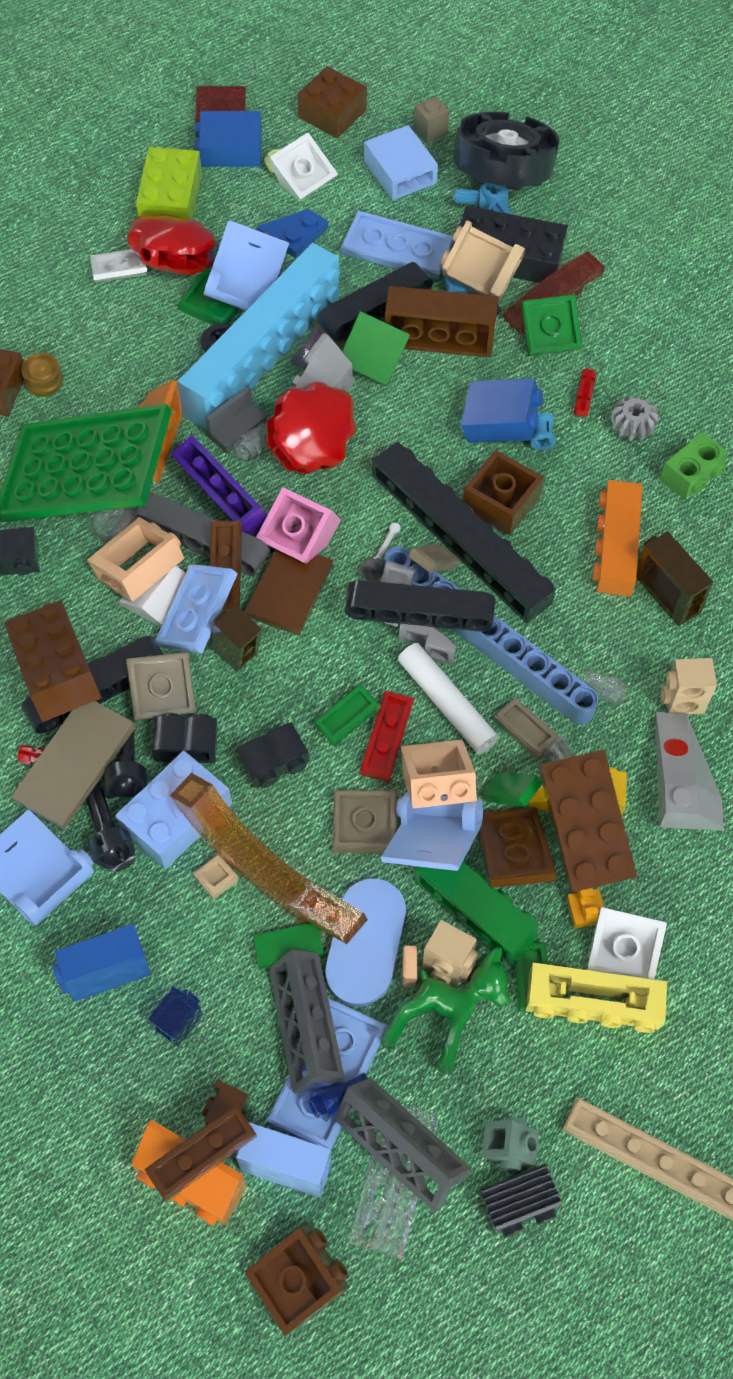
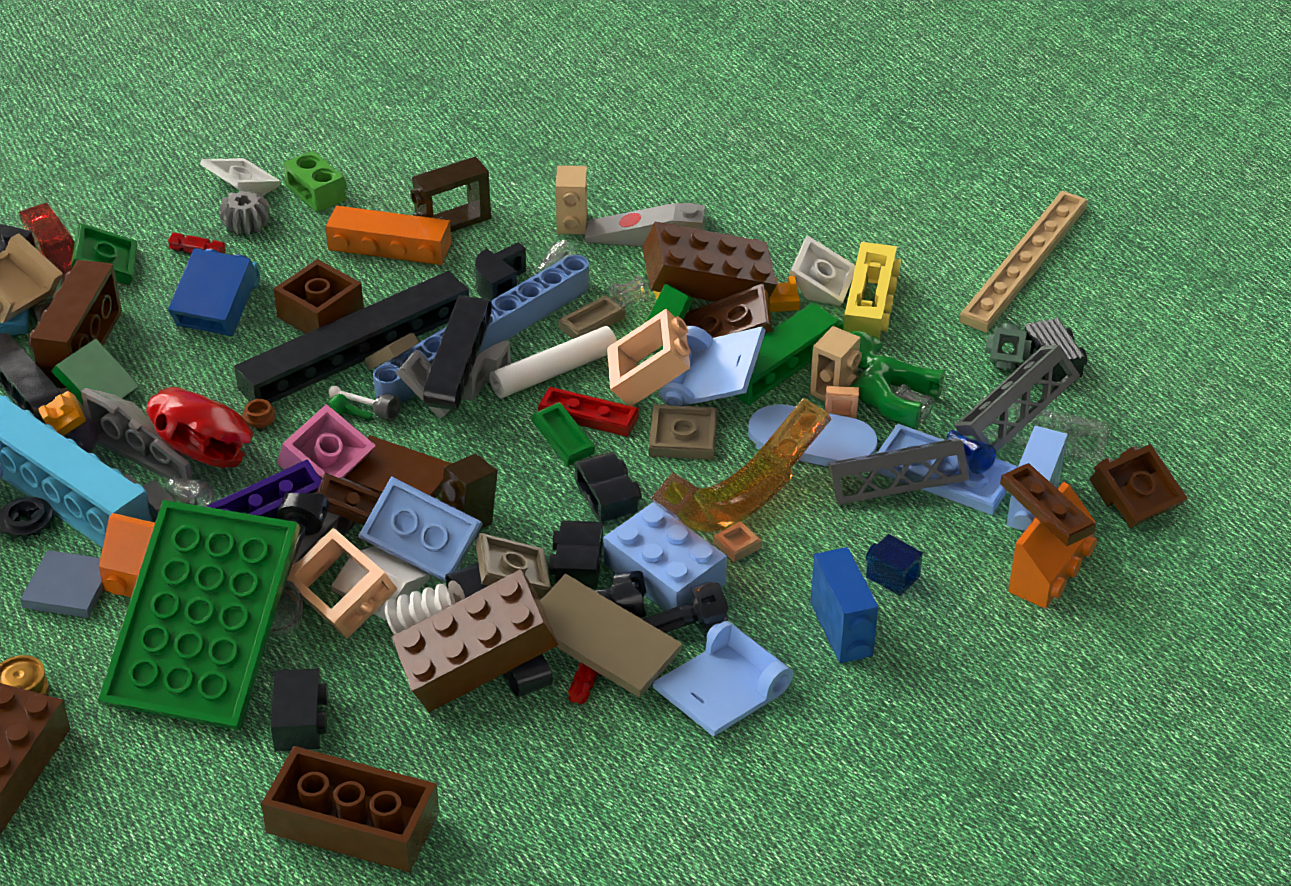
camera: 85 degrees left, 20 degrees down
(101, 624) = (412, 610): none -> white piece
(146, 375) = (64, 585): none -> sand blue tile
(189, 511) = (305, 509): none -> black piece
(226, 1098) = (987, 530): reddish brown brick -> none
(275, 944) = (816, 489): green tile -> none
(305, 328) = (63, 413): none -> light orange tile
(356, 475) = (259, 413): none -> dark orange plate
(373, 533) = (341, 404): none -> green hand
(417, 1039) = (927, 402): none -> clear bush
(574, 630) = (499, 271): none -> black brick
(692, 405) = (242, 174): none -> white slope

